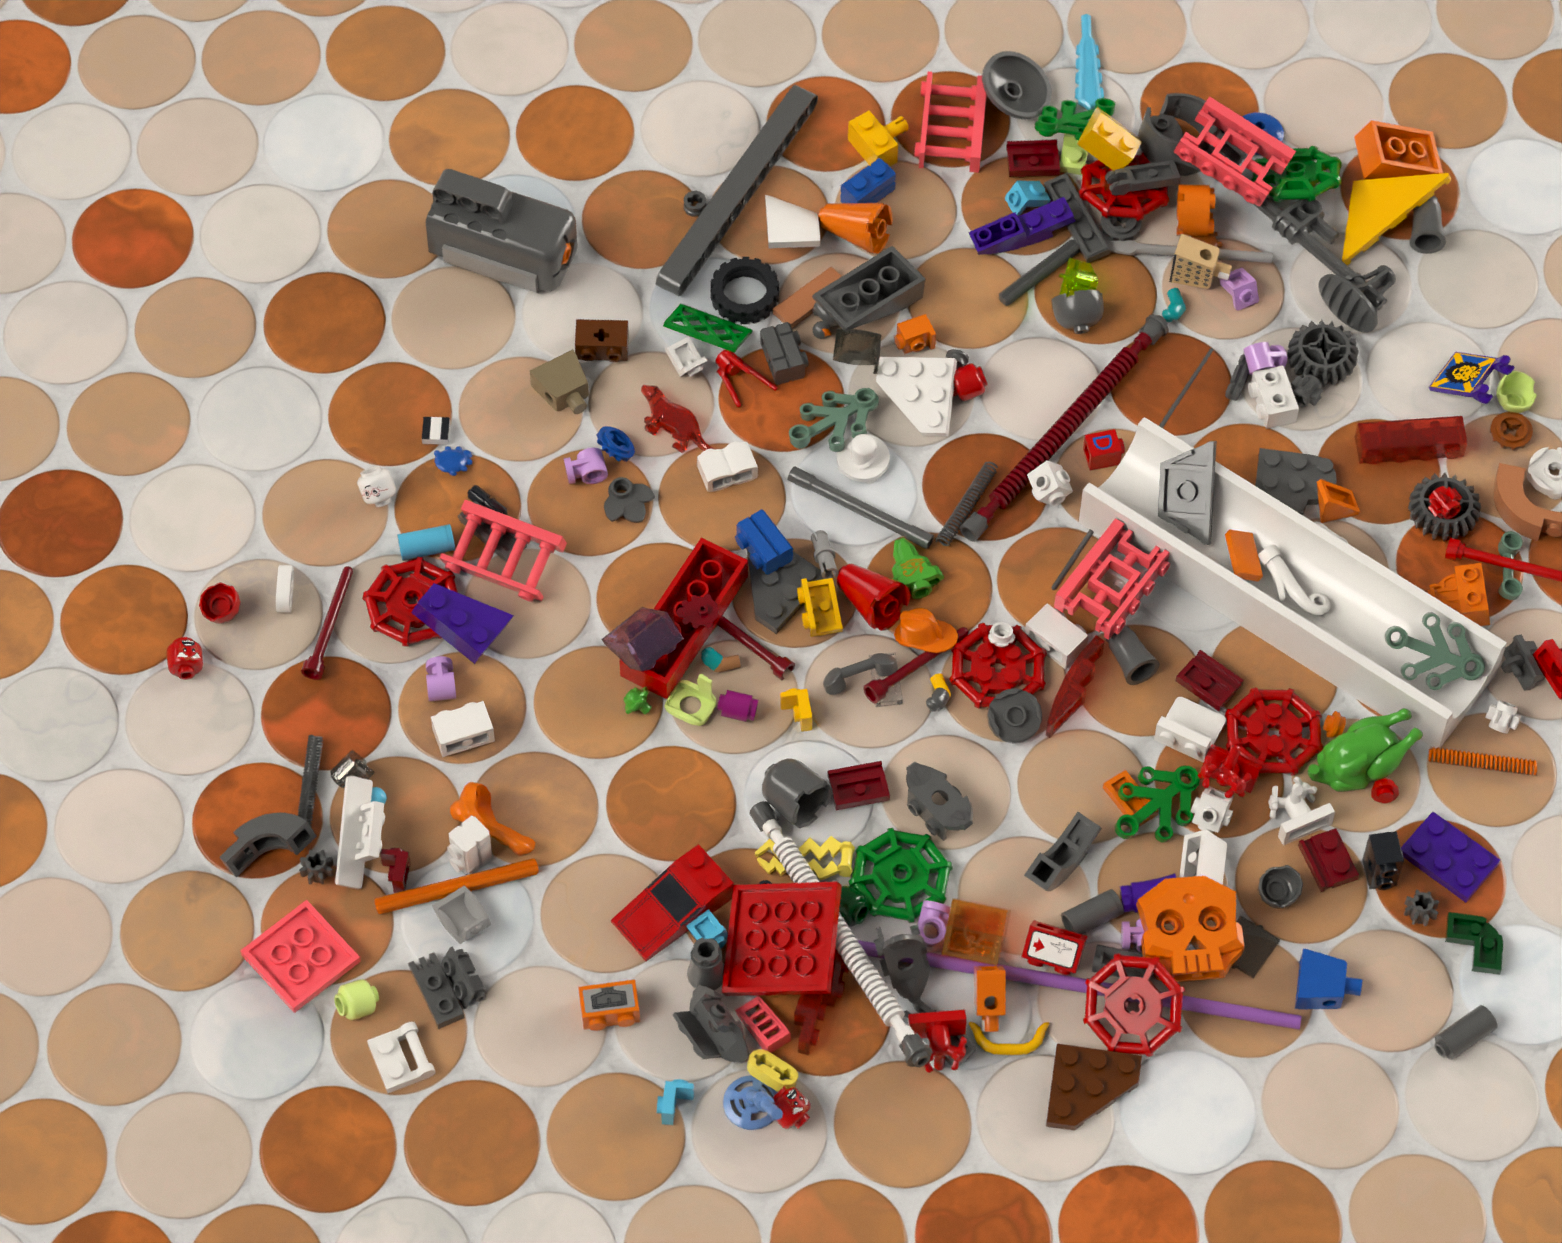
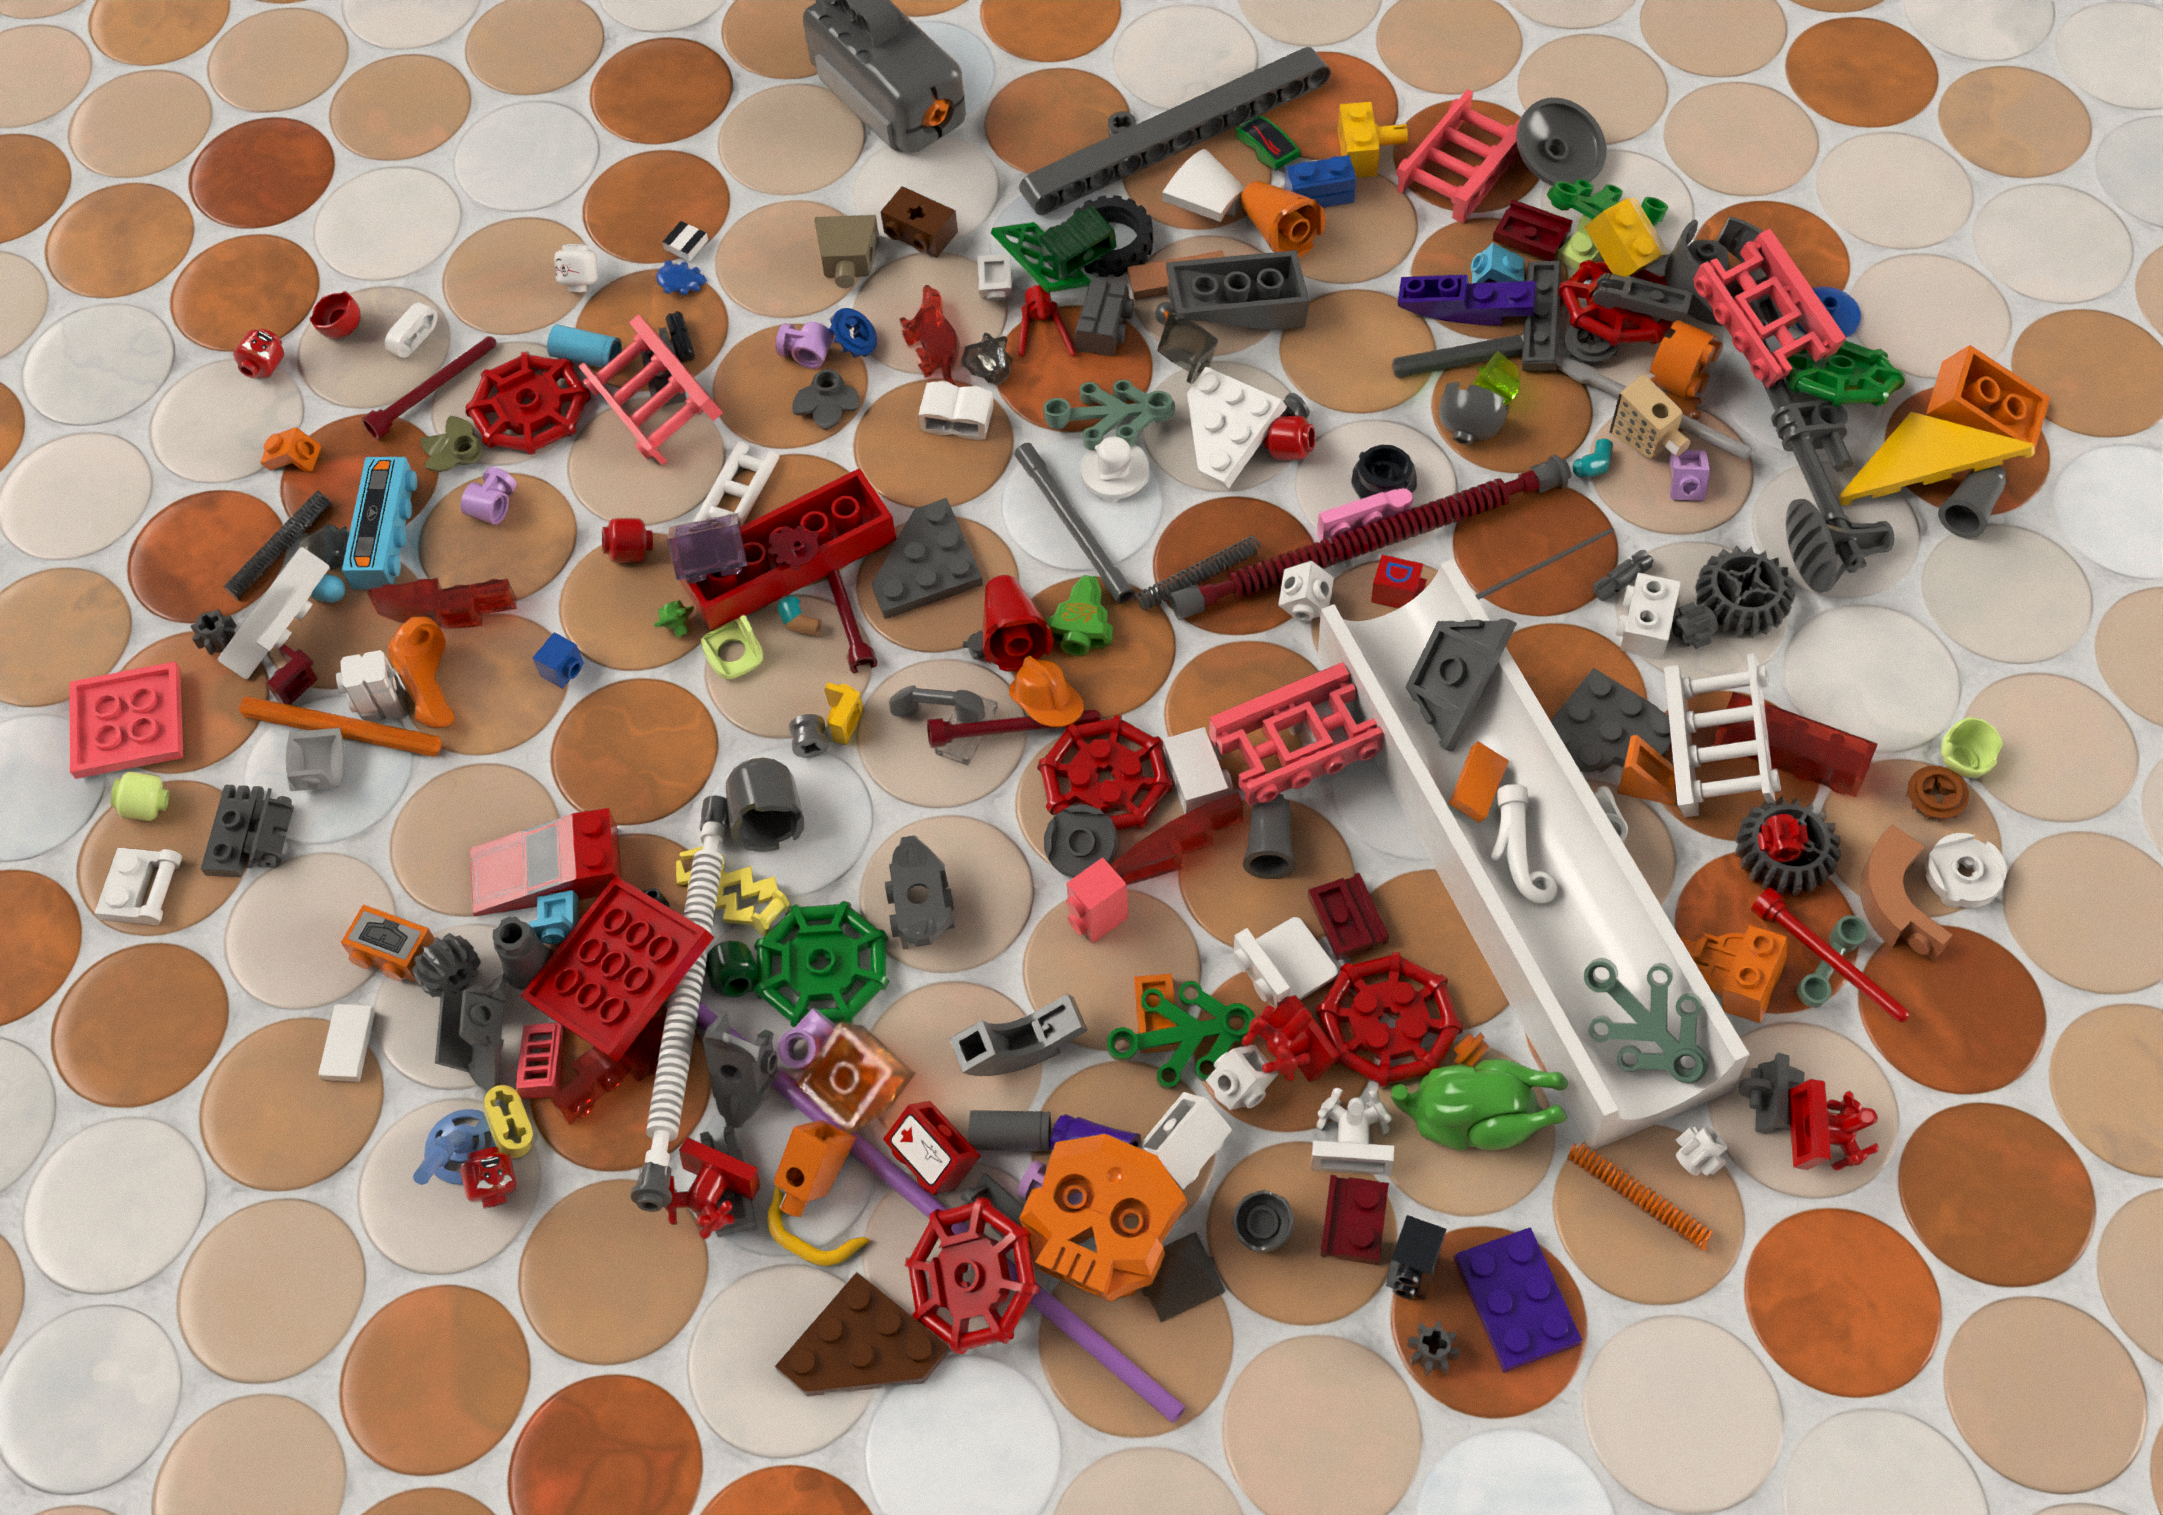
camera: 35 degrees right, 0 degrees up
(263, 716) = (288, 448): none -> orange bracket
(265, 834) = (179, 571): dark grey arch -> none
(375, 736) = (379, 522): none -> medium azure brick
(377, 658) = (453, 448): none -> olive plate
(454, 772) = (448, 607): none -> clear red slope
(461, 620) = (551, 443): dark purple wedge -> none
(462, 728) = (467, 556): white brick -> none
(563, 664) = (626, 540): none -> red head
(580, 767) = (558, 660): none -> blue plate
(599, 595) = (725, 484): none -> white bar
(626, 1080) = (347, 1043): none -> white tile
(662, 997) = (446, 965): none -> dark grey gear
(672, 1091) = (370, 1091): medium azure bracket -> none
(725, 419) = (988, 359): none -> clear smoke piece
(734, 306) = (1077, 242): none -> dark green brick
(737, 706) = (778, 676): magenta brick -> none
(764, 542) = (928, 506): blue brick -> none
(788, 735) = (808, 735): none -> flat silver wheel
(811, 170) = (1271, 143): none -> slope
(821, 607) = (944, 608): yellow bracket -> none
(824, 554) = (992, 554): light grey pin -> none
(854, 621) = (974, 645): none -> dark grey piece
(858, 785) = (846, 833): dark red plate -> none
(915, 335) = (1264, 360): orange brick -> none
(940, 695) = (1016, 775): dark grey arm -> none
(1001, 634) = (1126, 738): white plate -> none
(1044, 380) = (1383, 470): none -> black hat
(1051, 412) = (1362, 512): none -> bright pink hinge
(1054, 746) = (1096, 900): none -> coral brick
(1088, 65) = (1664, 160): medium azure sword -> none
(1262, 356) = (1659, 559): lavender piece -> none
(1323, 982) = (1239, 1377): blue torso -> none
(1355, 478) = (1685, 722): none -> white fence
(1384, 791) = (1482, 1167): red plate -> none
(1466, 374) = (1916, 696): flag -> none
(1482, 936) = (1493, 1432): dark green plate -> none

